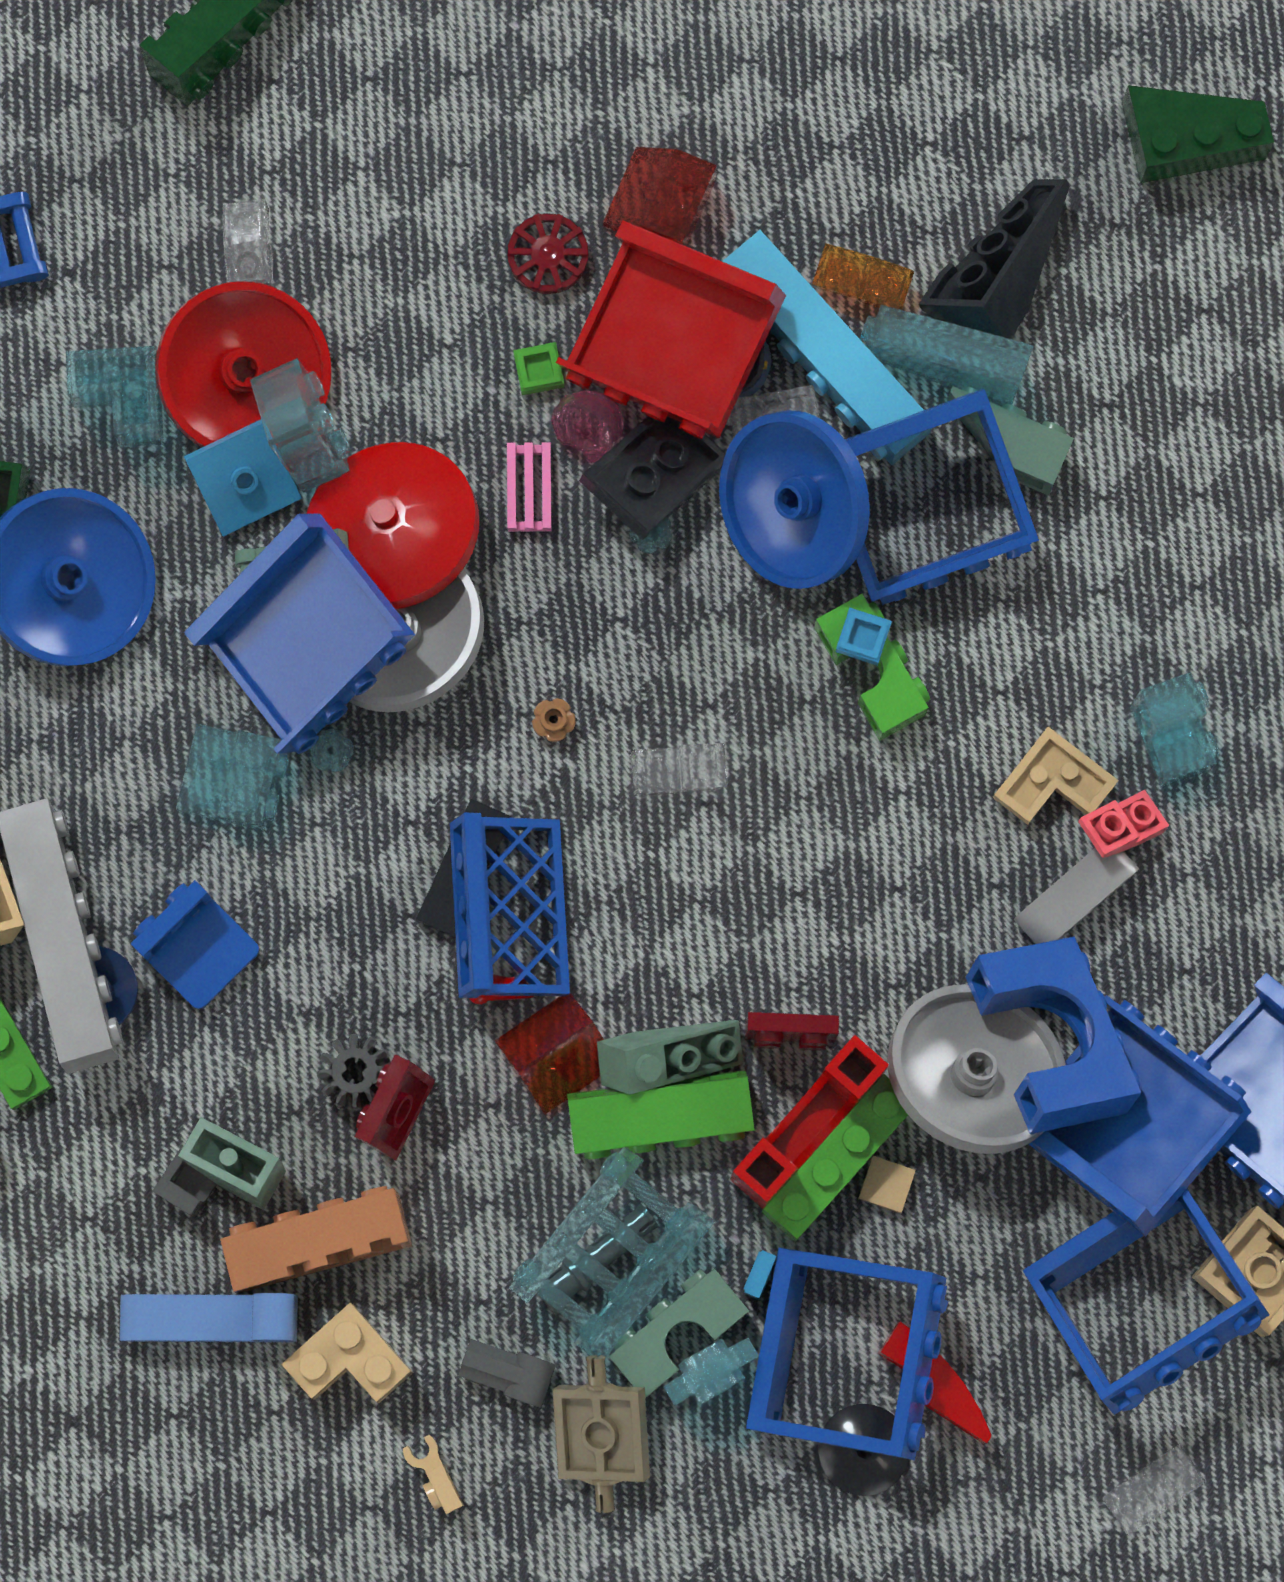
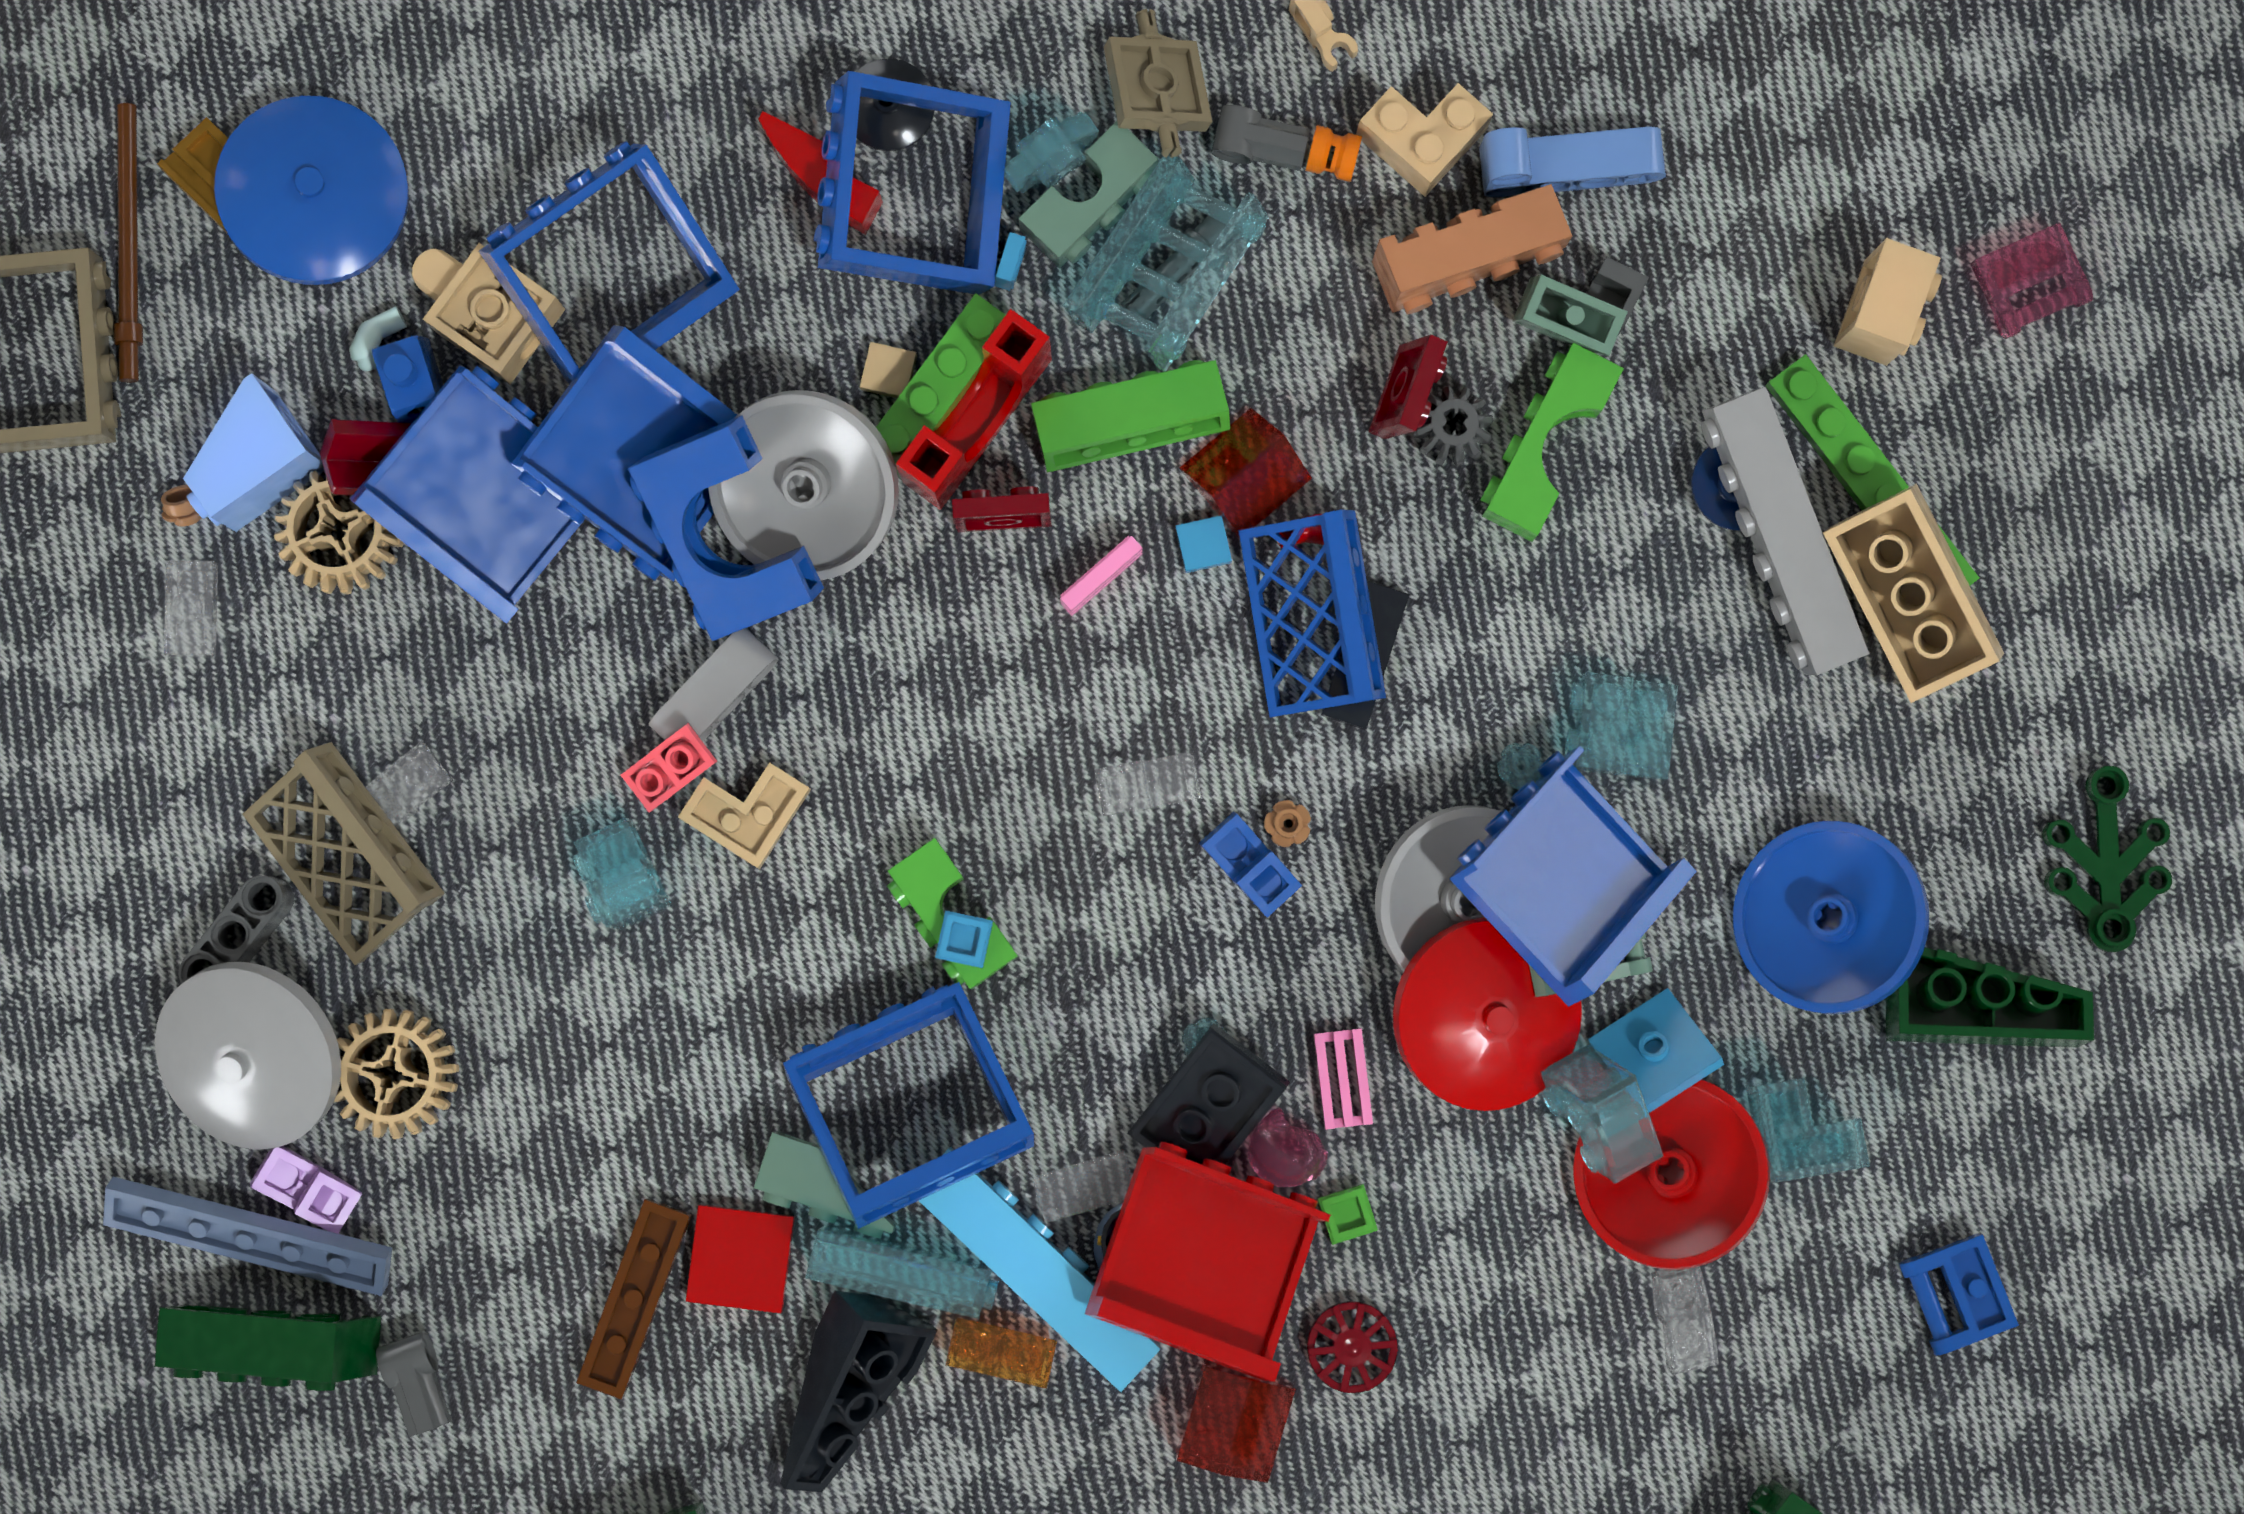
camera: 175 degrees right, 5 degrees up
(195, 944) = (1637, 542): blue bracket -> none
(234, 1096) = (1577, 390): none -> bright green arch
(427, 1347) = (1344, 155): none -> orange wheel
(592, 687) = (1250, 864): none -> blue slope
(603, 987) = (1203, 544): none -> dark azure tile
(668, 1055) = (1129, 475): sand green slope -> none
(703, 965) = (1101, 575): none -> bright pink tile
(794, 499) = (1053, 1080): blue dish -> none
(1090, 385) = (740, 1258): none -> red tile
(1153, 1489) = (589, 94): clear slope -> none
(1188, 359) = (634, 1299): none -> reddish brown plate

